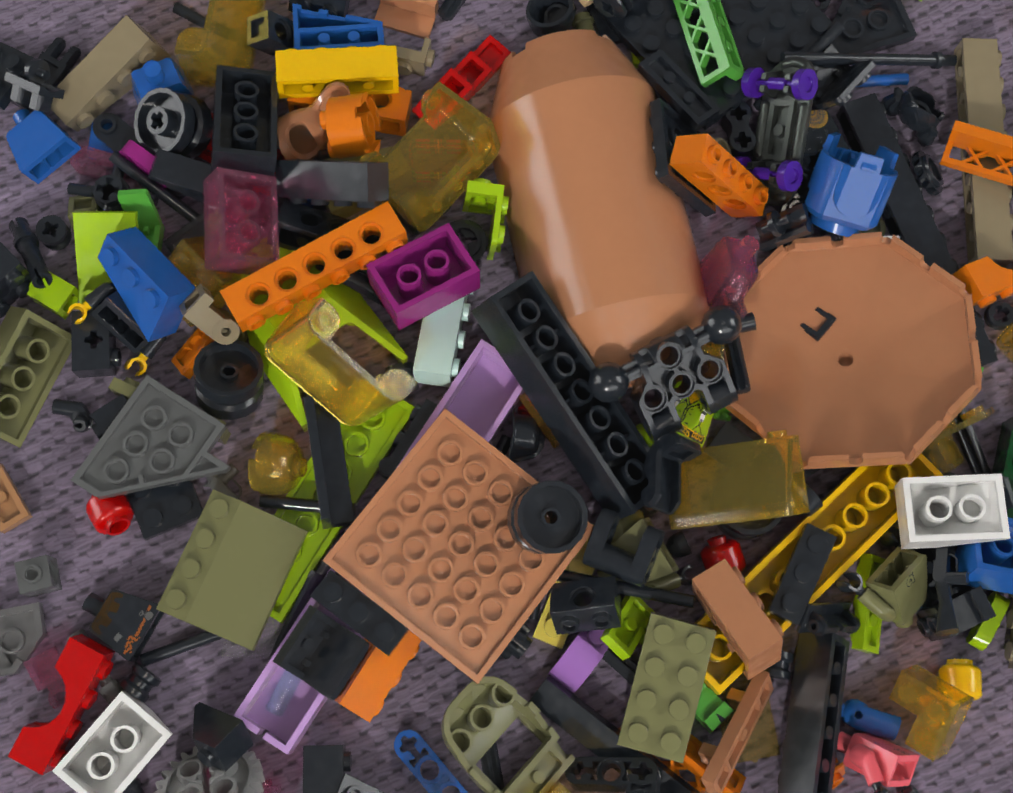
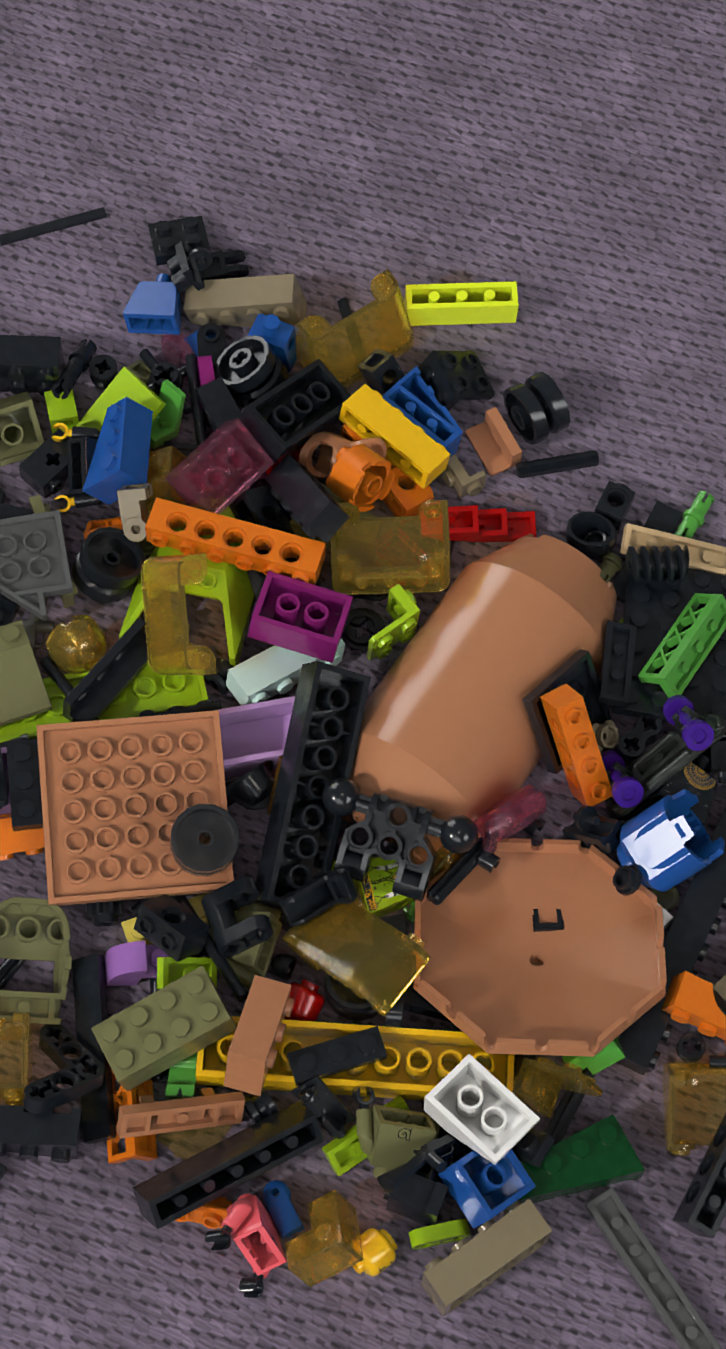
camera: 50 degrees right, 10 degrees down
(855, 239) = (627, 879): none -> black plate

